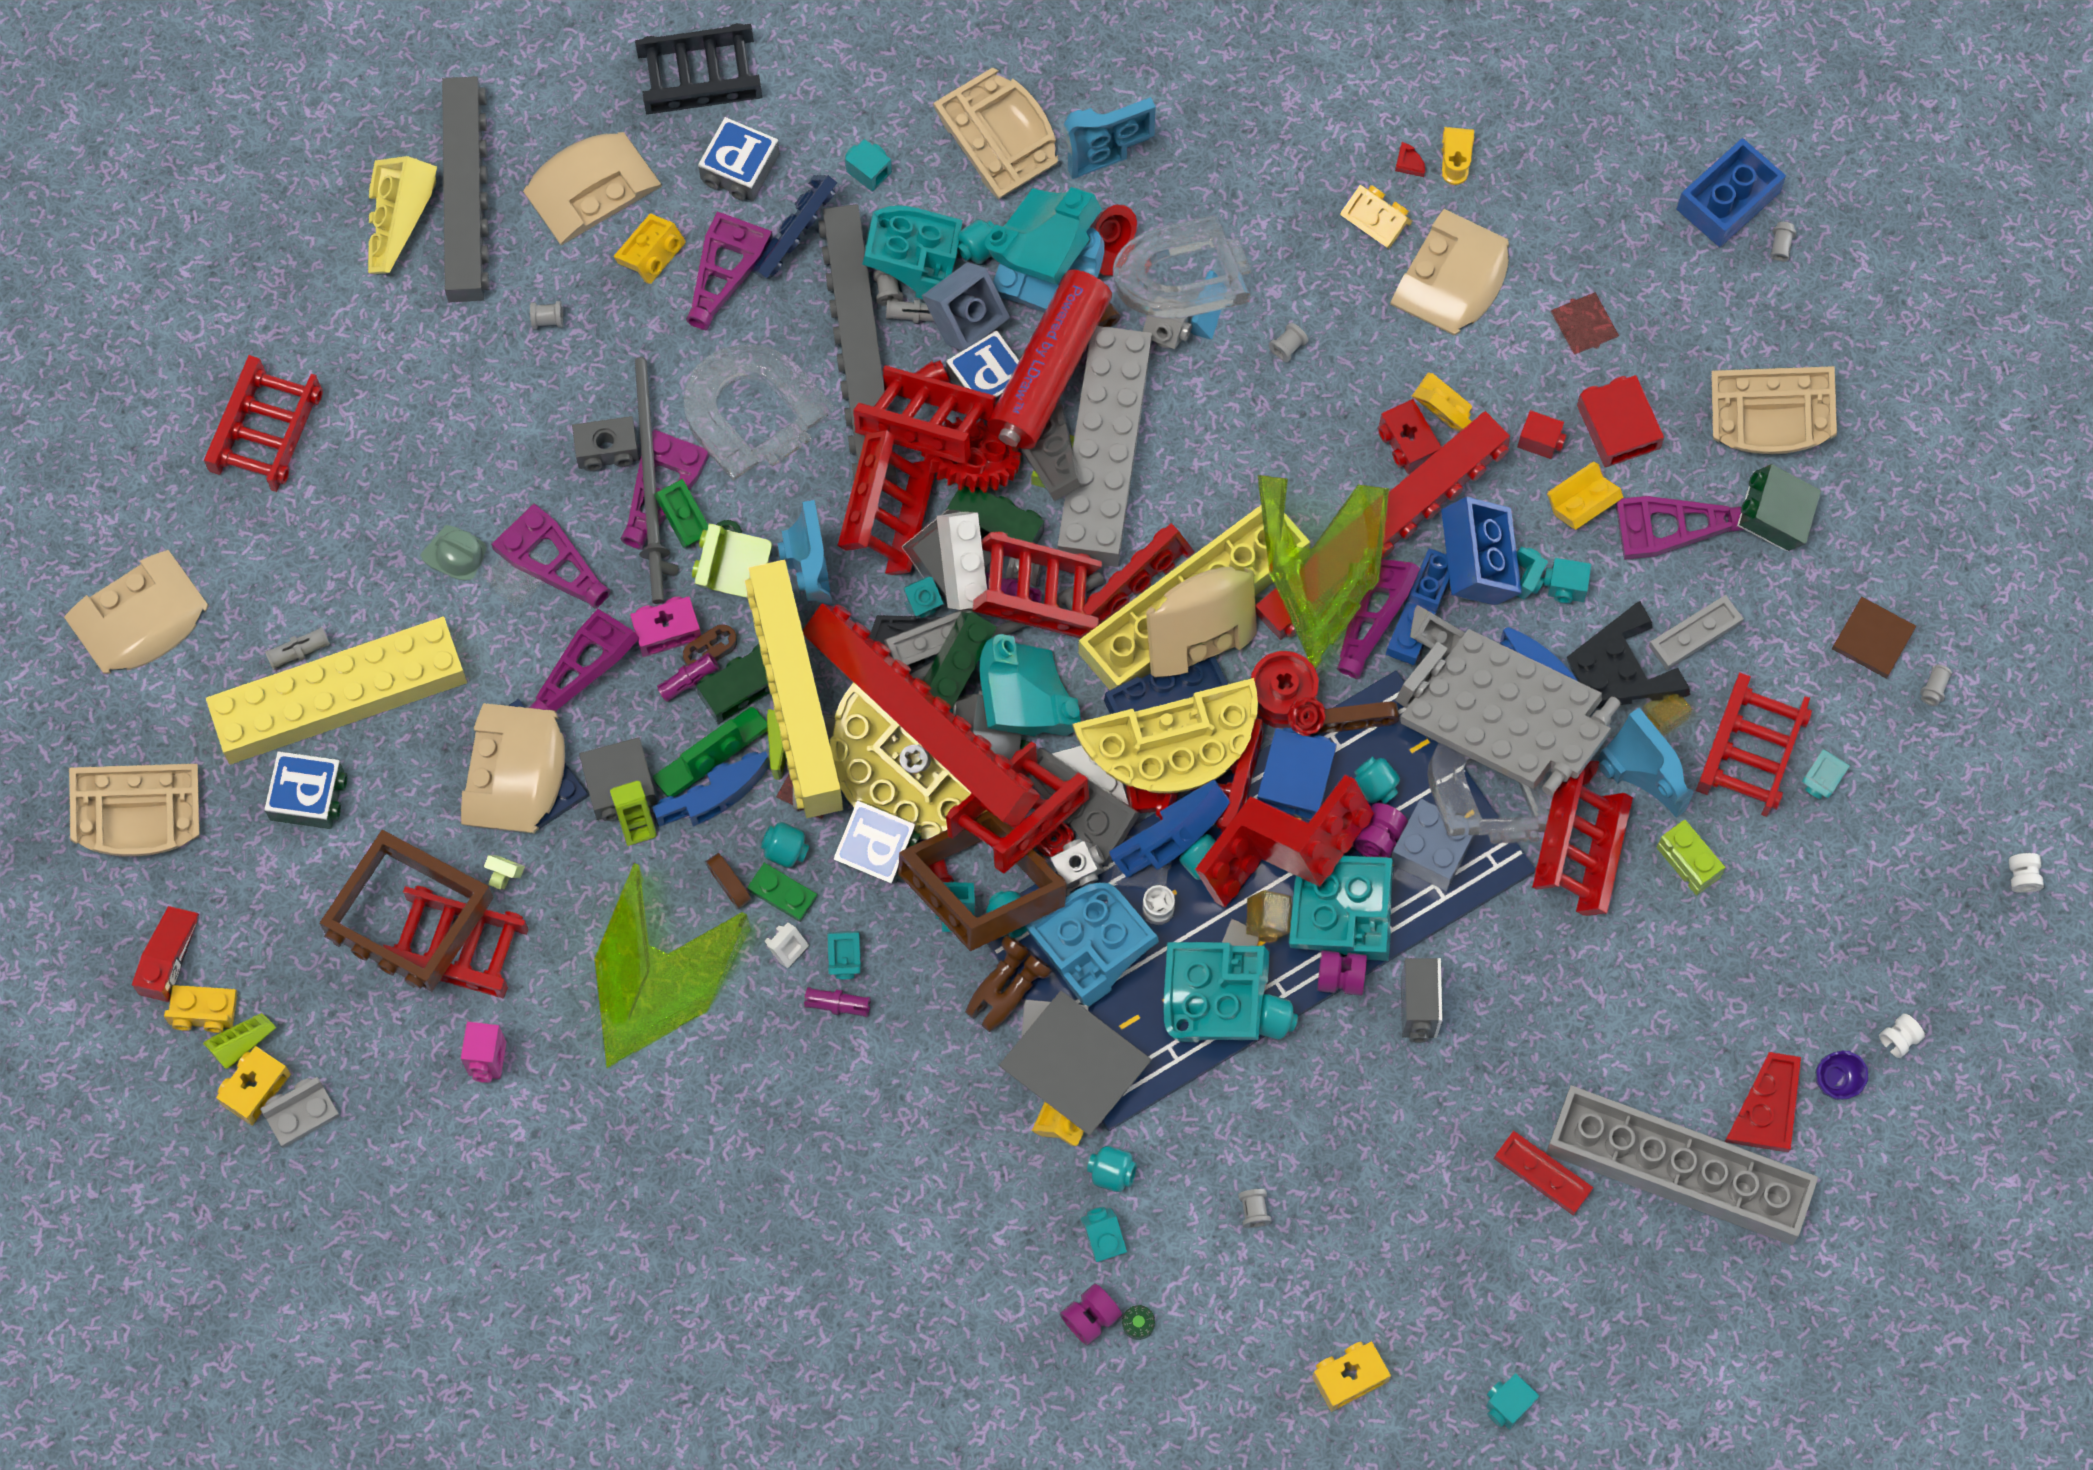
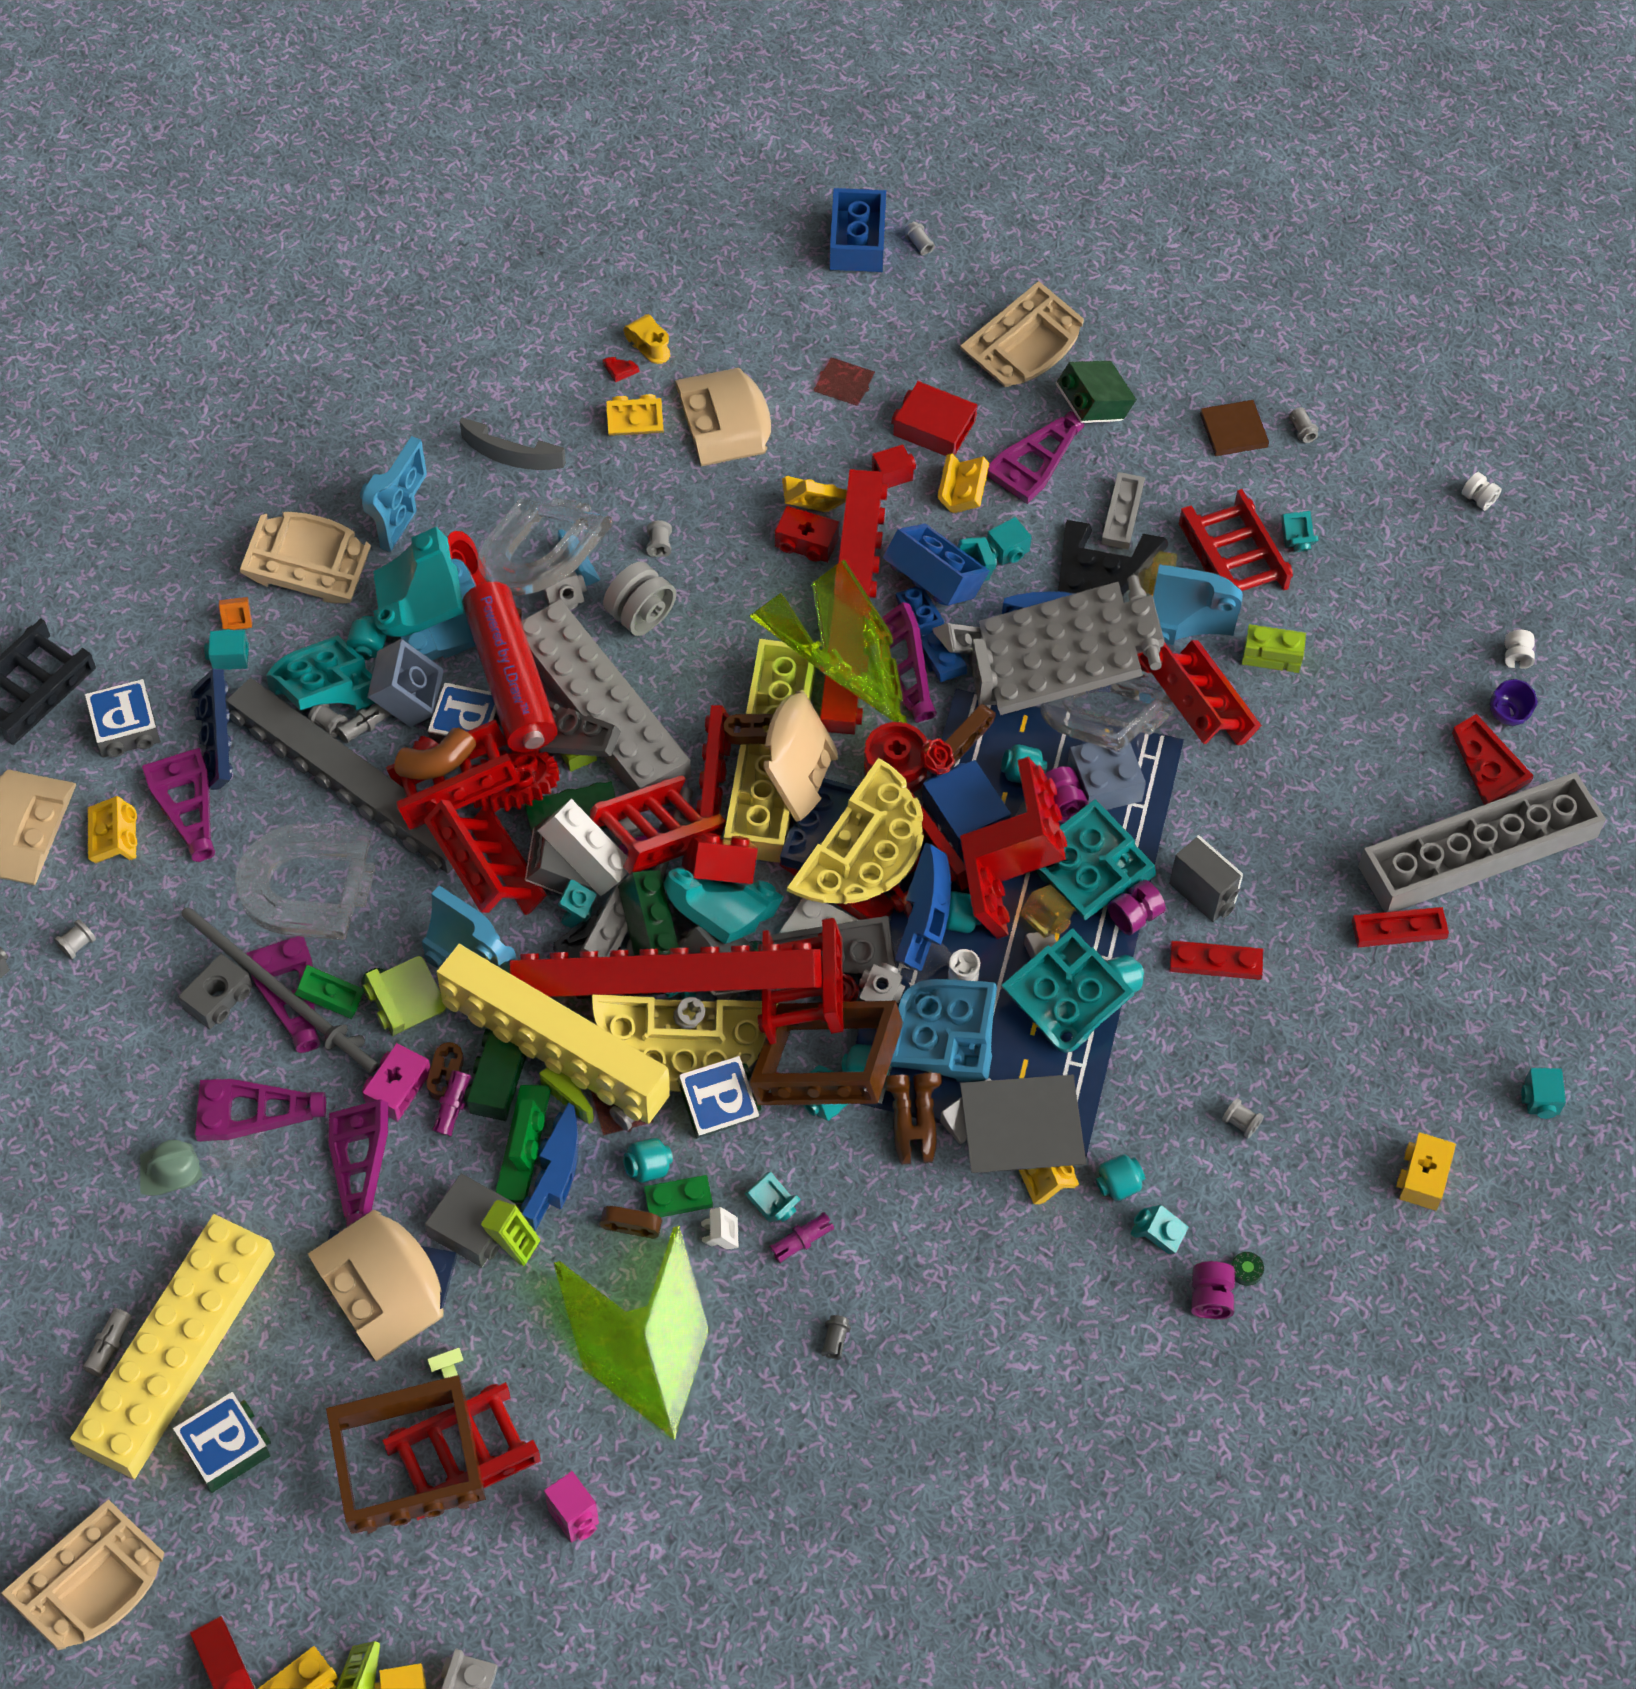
camera: 45 degrees left, 10 degrees down
(788, 1097) = (835, 1337): none -> dark grey pin
(901, 137) = (235, 613): none -> orange tile
(918, 394) = (437, 760): none -> dark orange cylinder
(1055, 658) = (721, 859): none -> red slope
(1187, 560) = (751, 728): none -> reddish brown beam
(1215, 383) = (639, 598): none -> light grey wheel
(1263, 191) = (542, 457): none -> dark grey slope
(1370, 1069) = (1216, 960): none -> red plate

